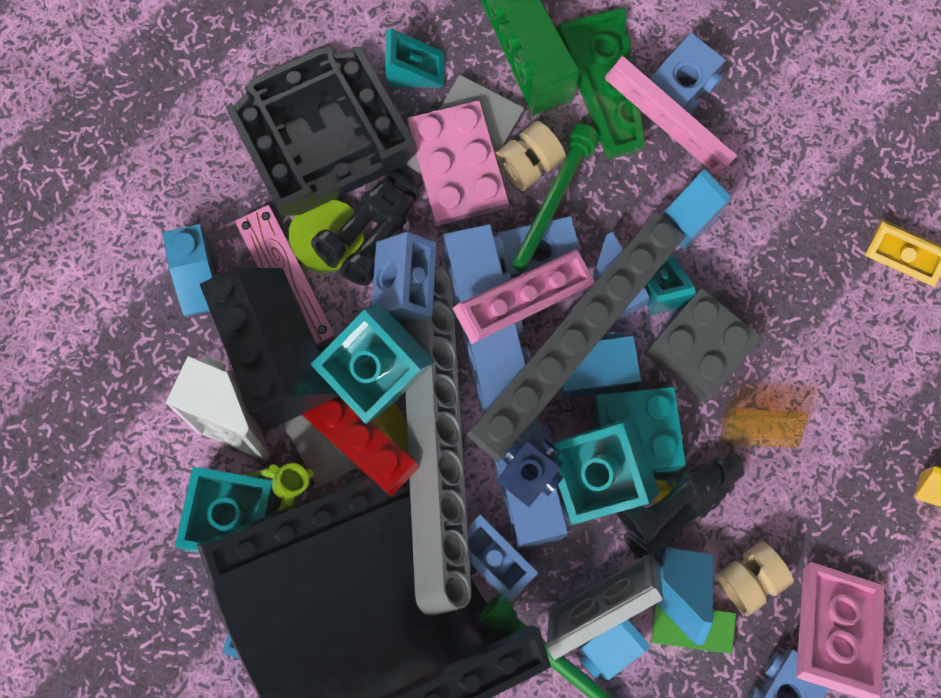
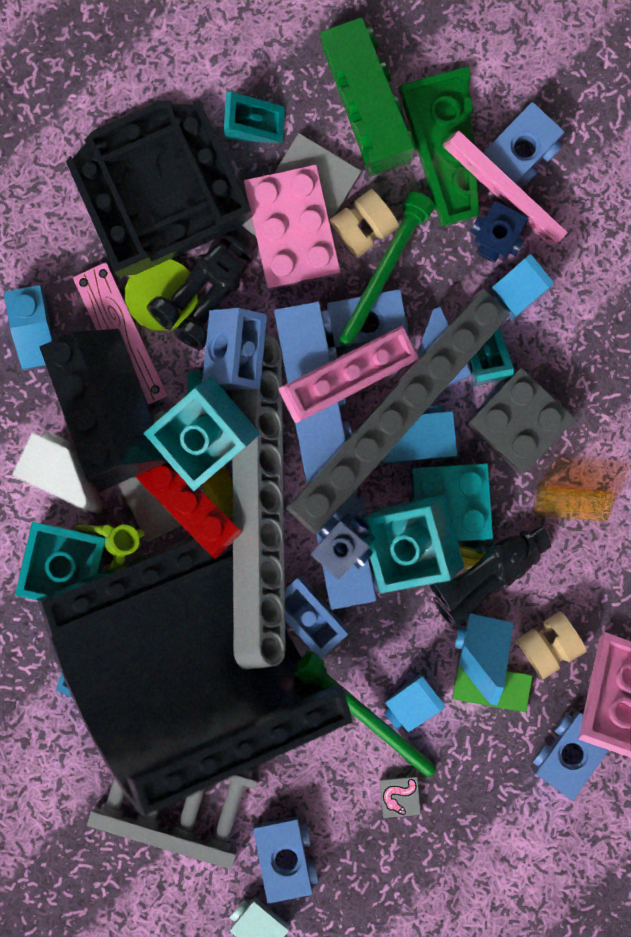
camera: 10 degrees right, 10 degrees up
(604, 606) = (407, 666): light grey tile -> none
(666, 159) = (508, 223): none -> dark blue brick

